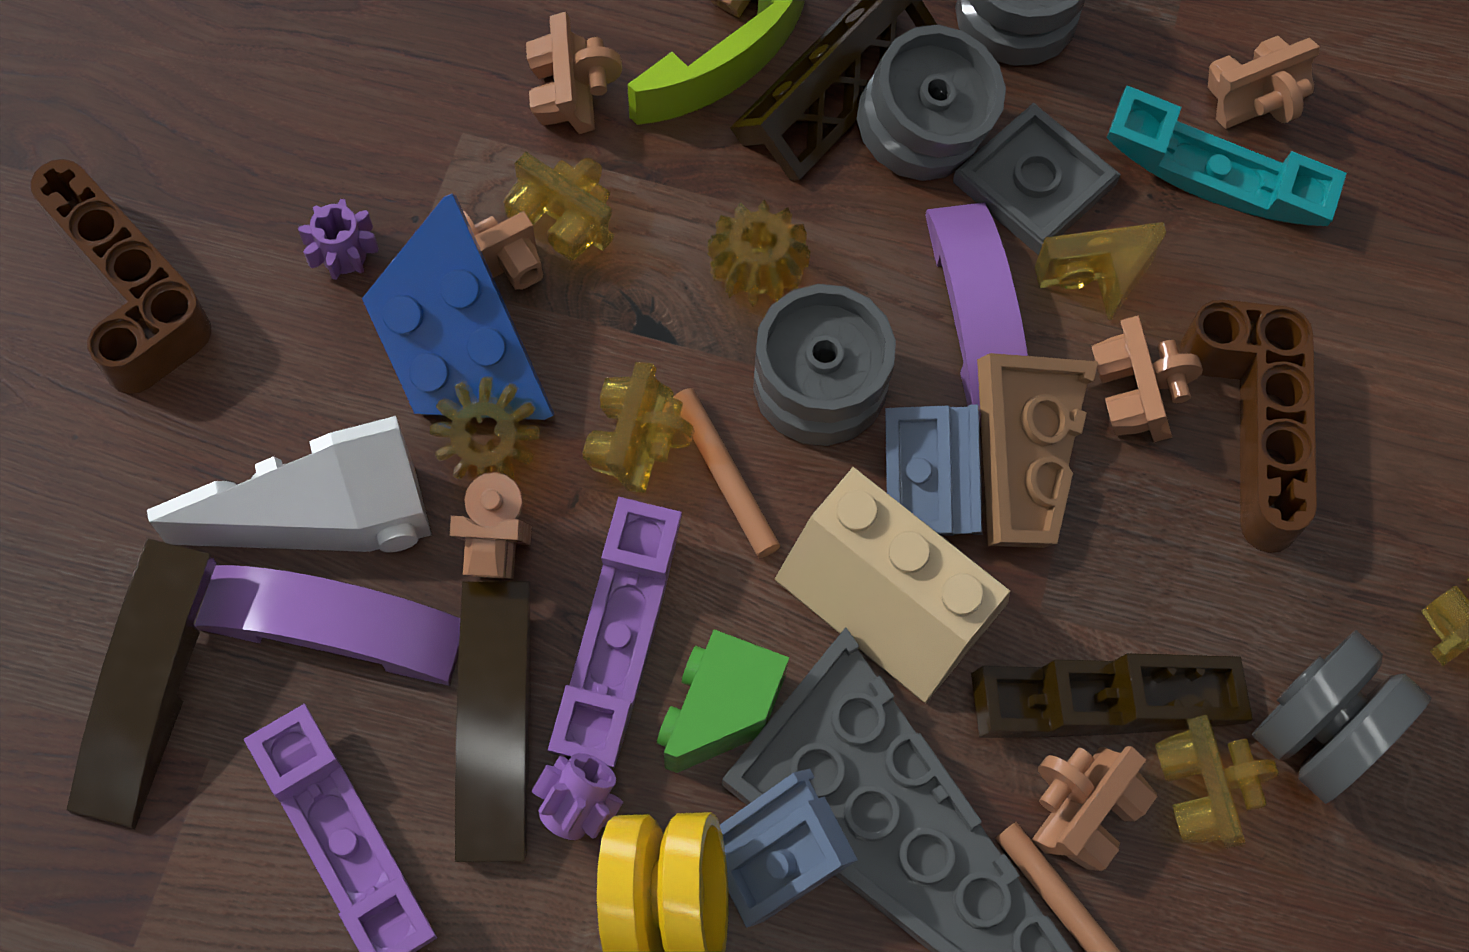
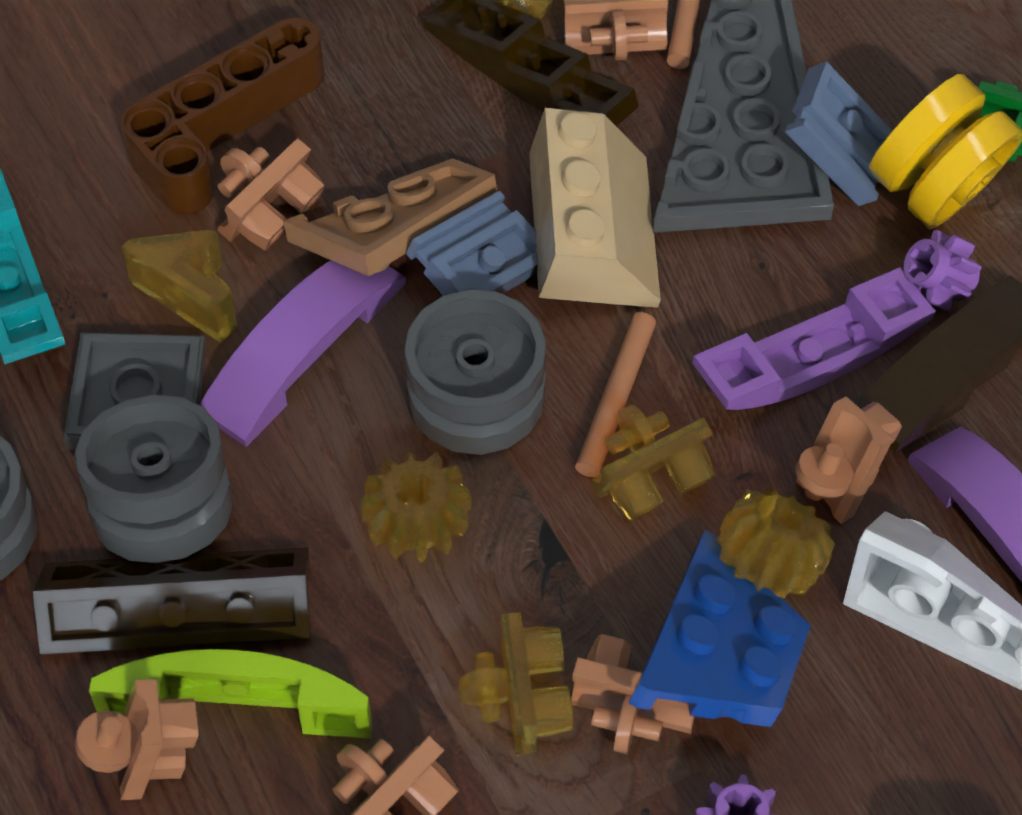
camera: 130 degrees left, 10 degrees down
(727, 702) = (785, 245): bright green slope -> none

